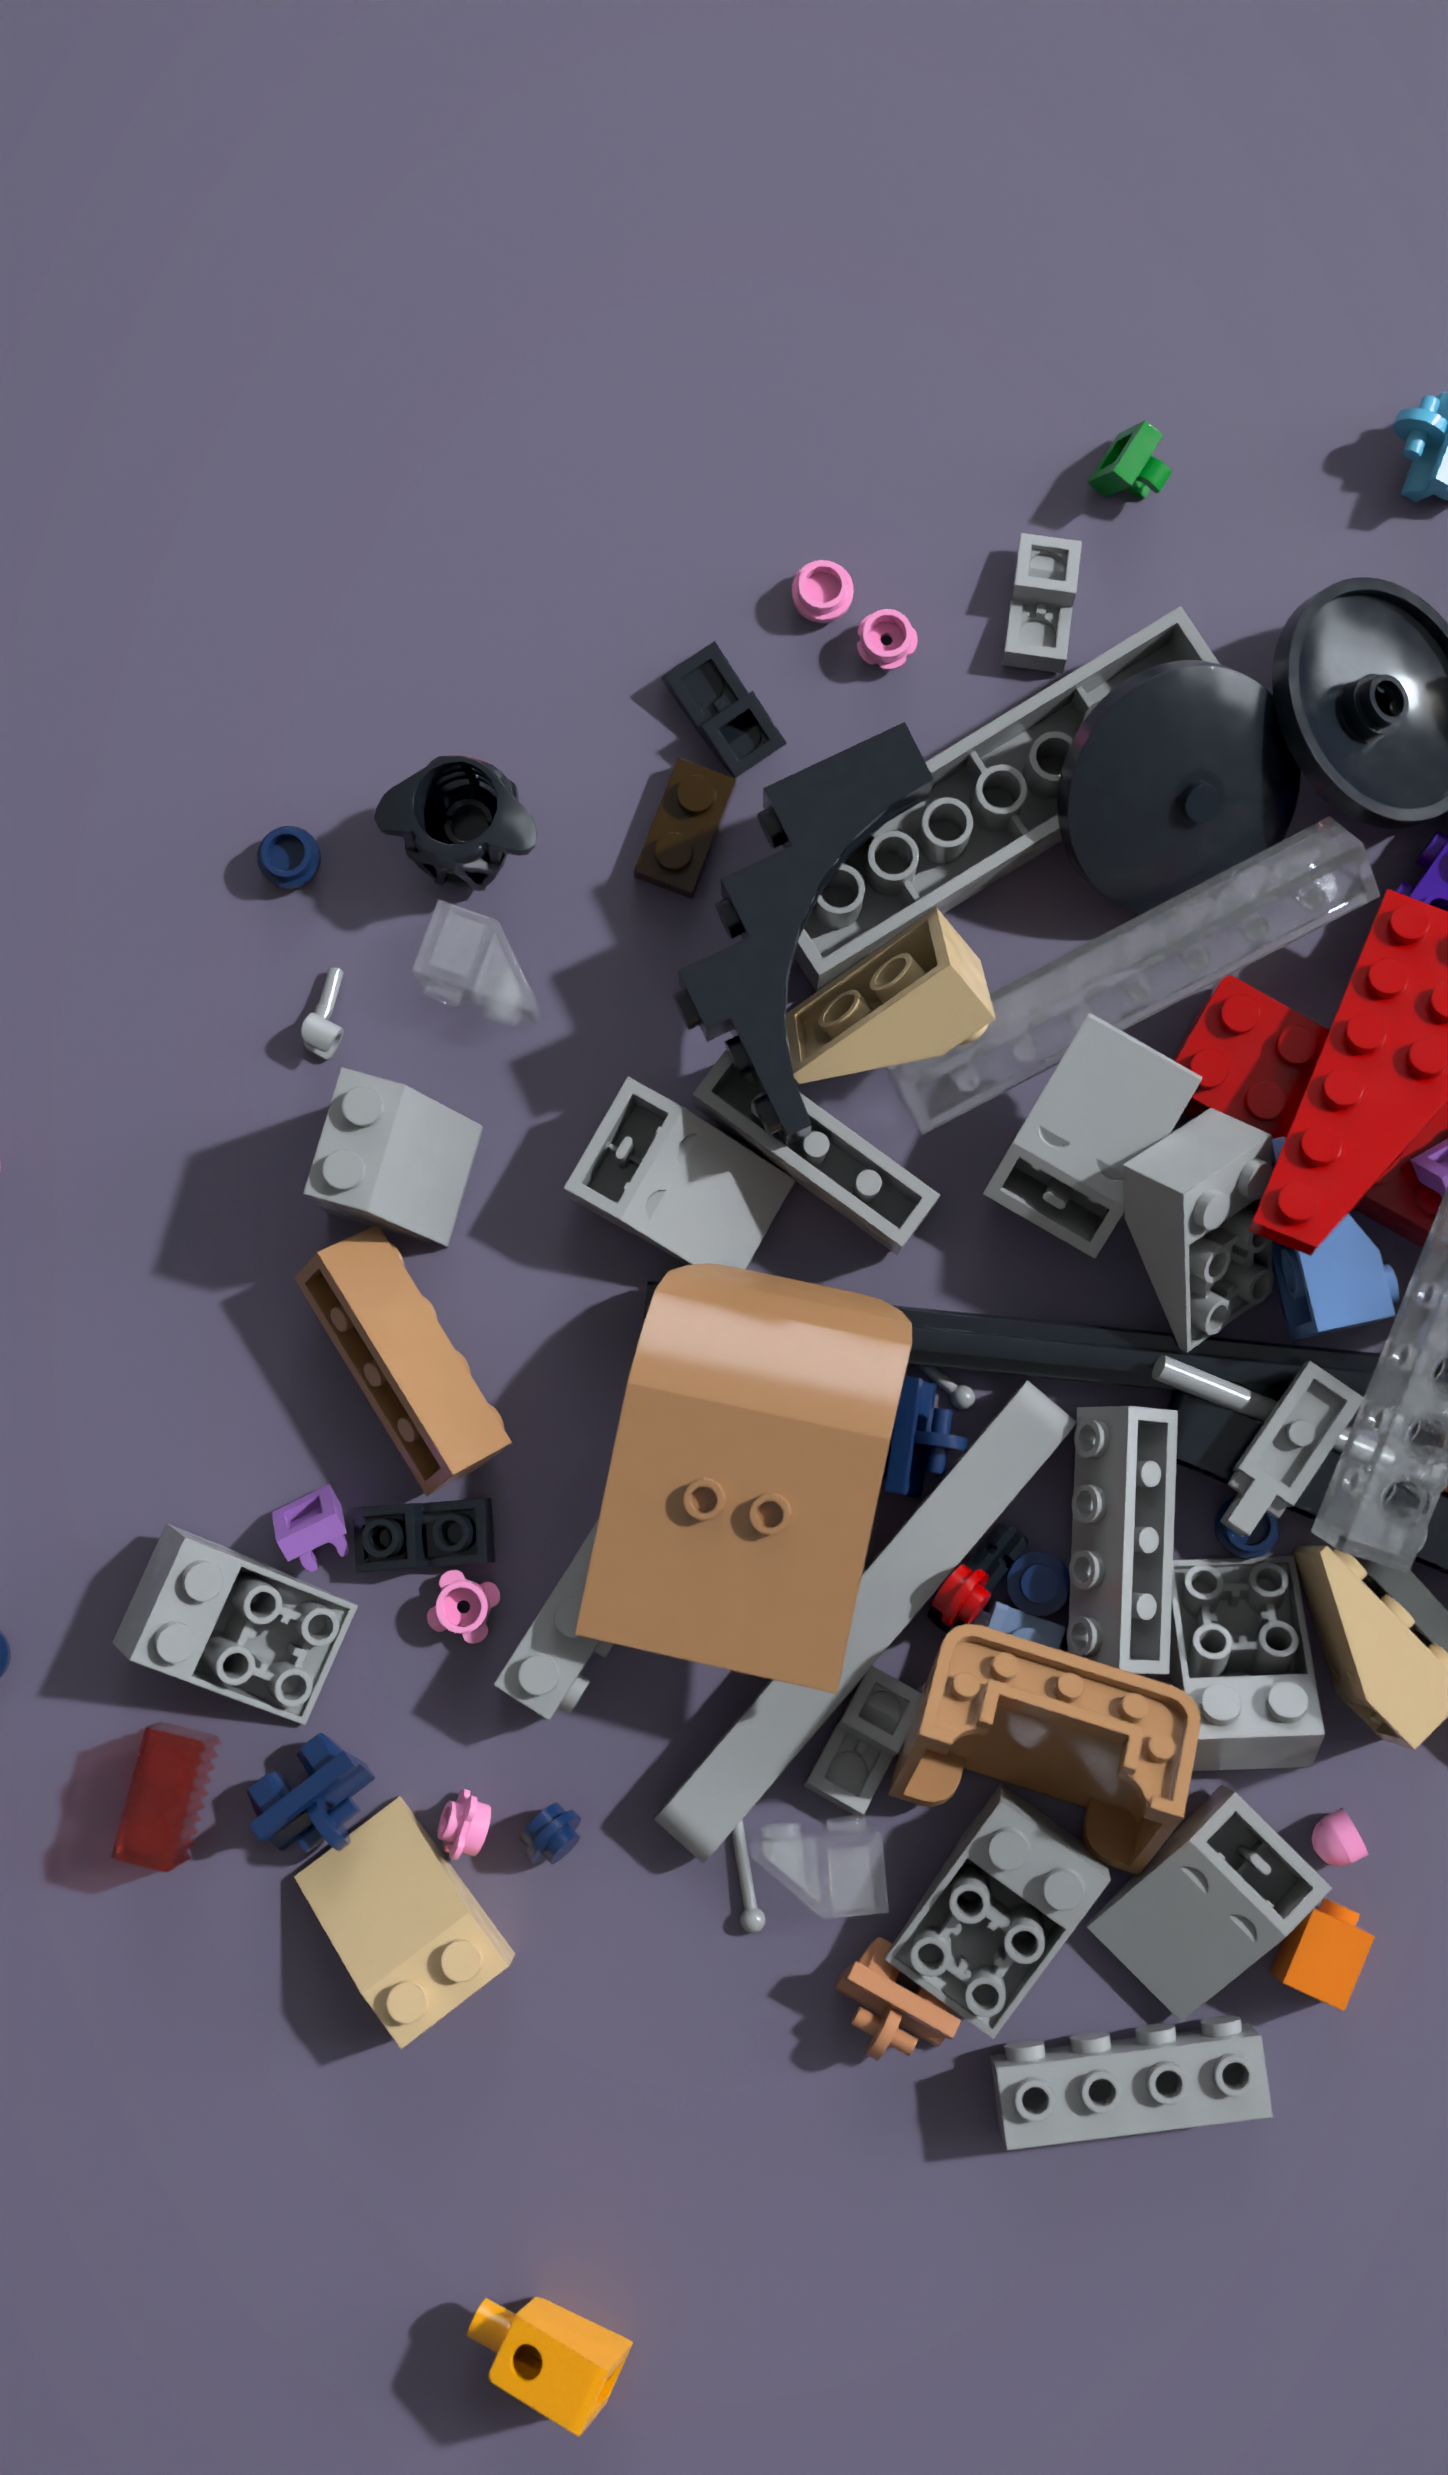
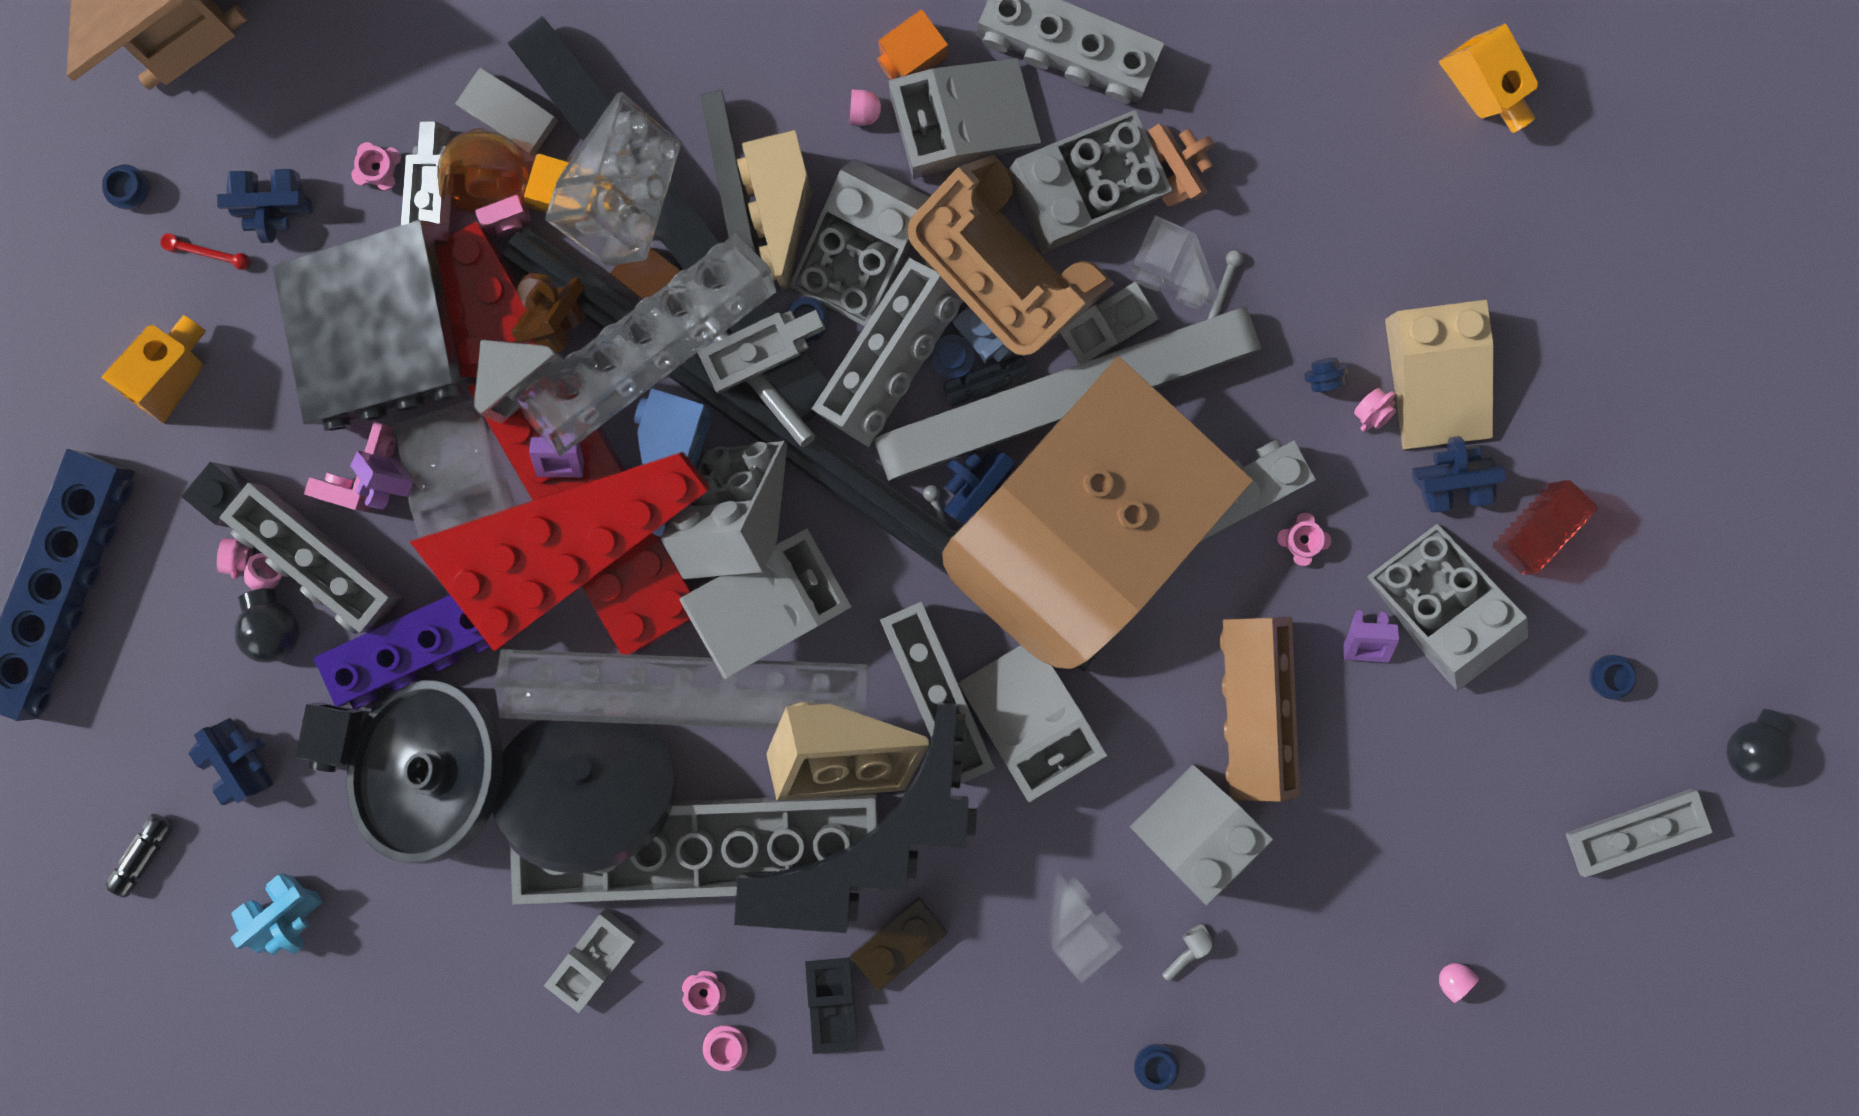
camera: 150 degrees left, 5 degrees up
(423, 1535) = (1304, 595): black slope -> none
(458, 820) = (1041, 1027): black piece -> none
(962, 1596) = (1004, 373): red plate -> none
(1130, 464) = (483, 1018): green tile -> none

